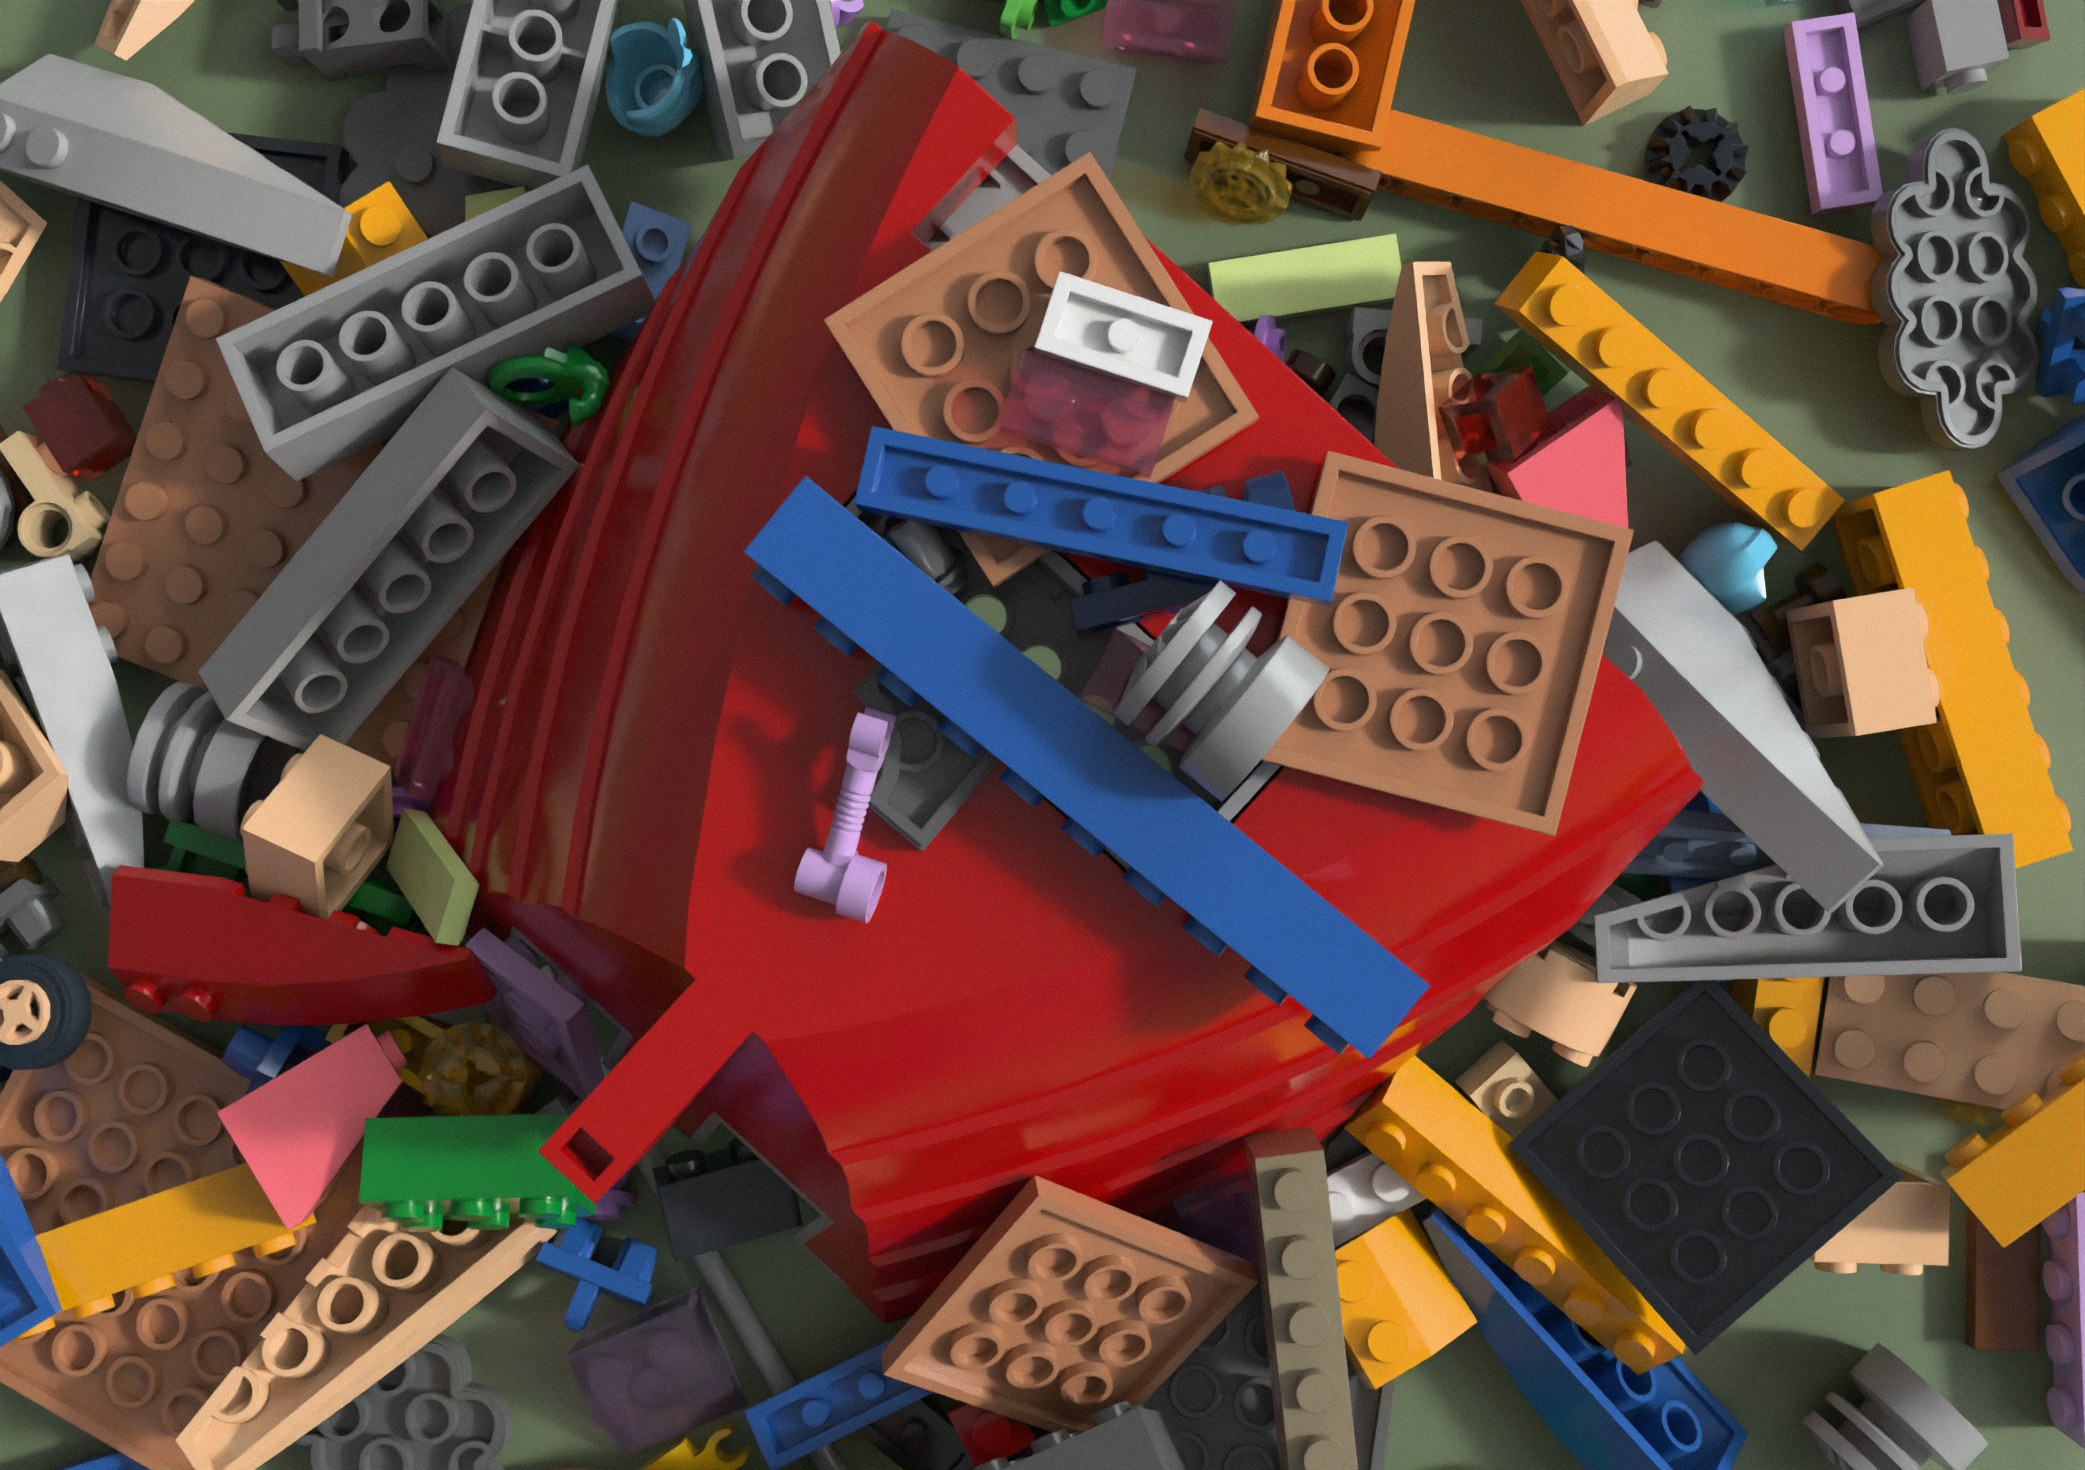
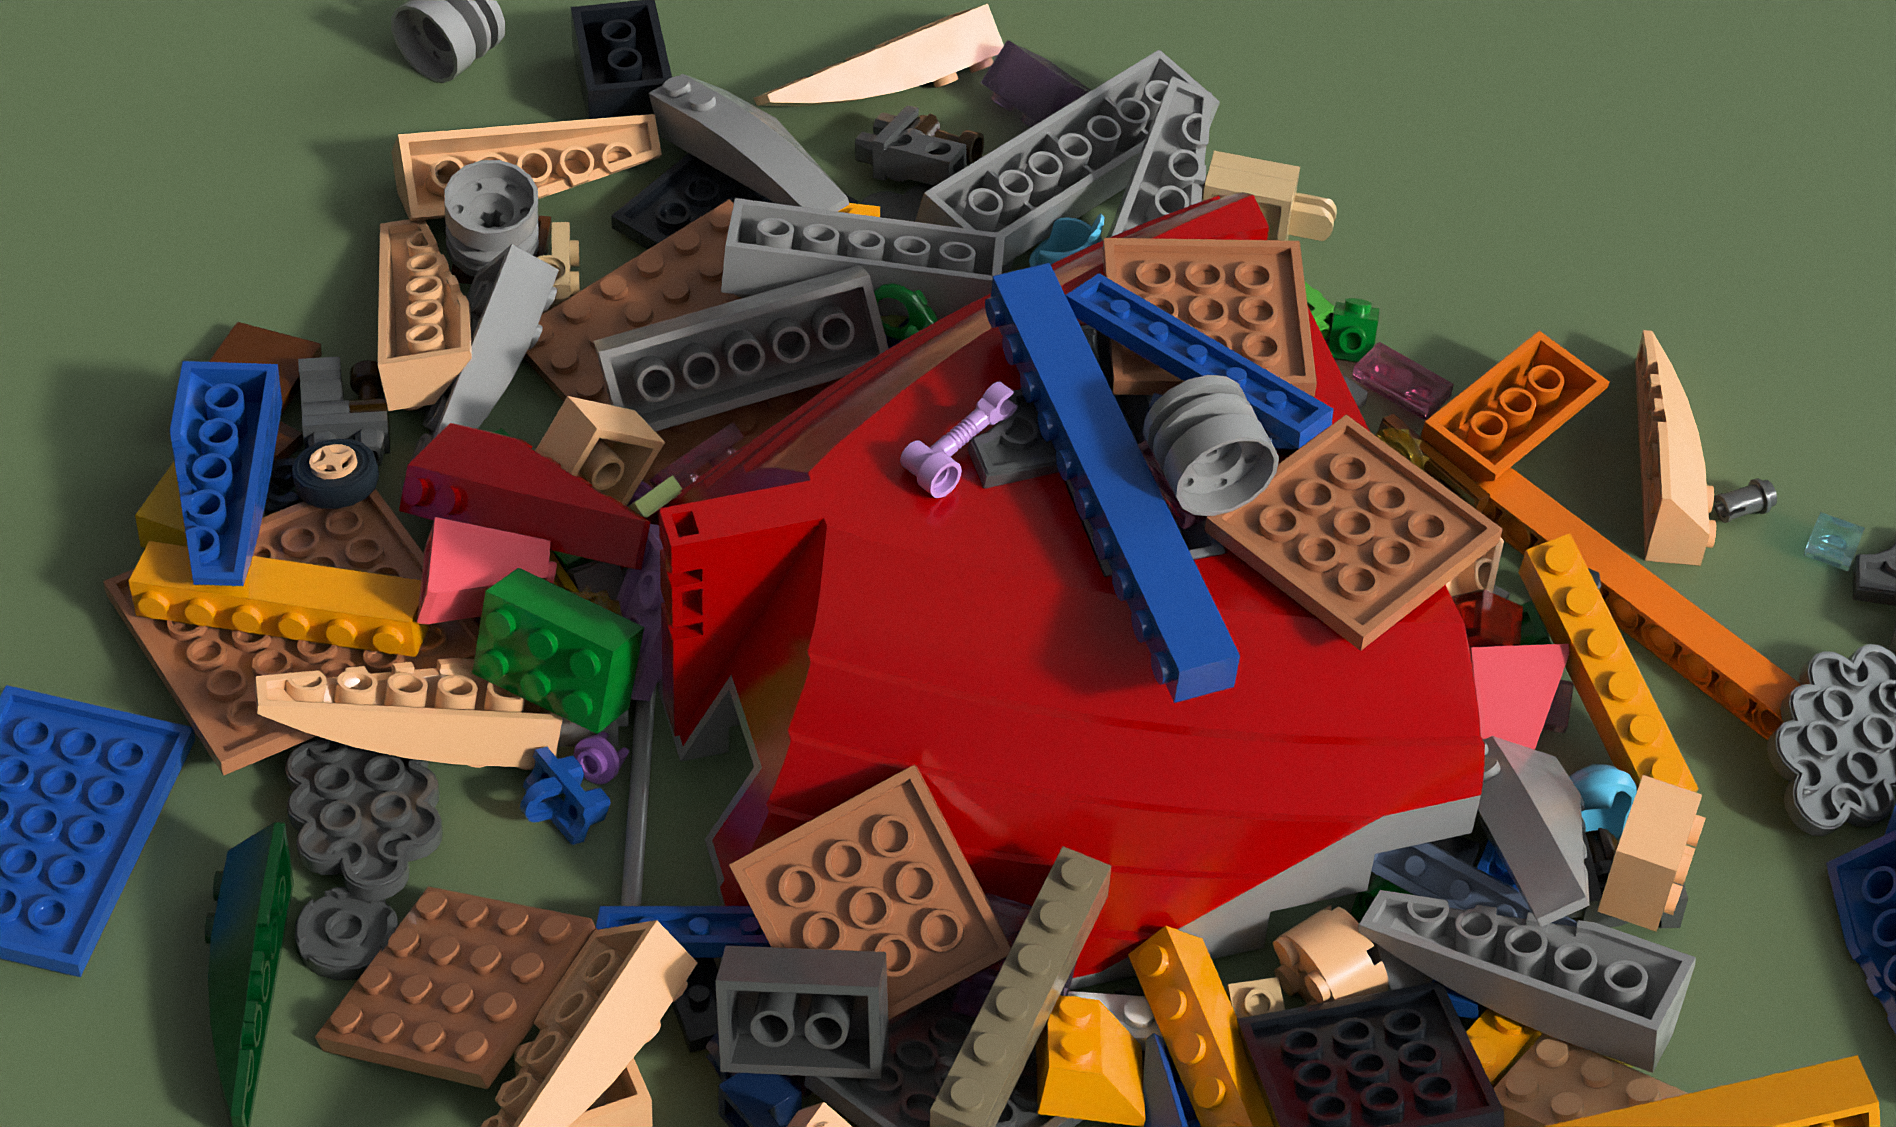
camera: 30 degrees right, 40 degrees down
(81, 425) = (601, 245): clear red brick -> none
(200, 763) = (532, 396): light grey wheel -> none
(657, 1373) = (557, 860): clear purple slope -> none
(721, 1199) = (682, 785): black brick -> none
(1086, 413) = (1224, 324): clear pink plate -> none
(1122, 336) = (1263, 306): white plate -> none
(1667, 152) = (1732, 604): black gear -> none
(1833, 113) = (1816, 616): lavender plate -> none
(1981, 759) = (1724, 928): light orange brick -> none

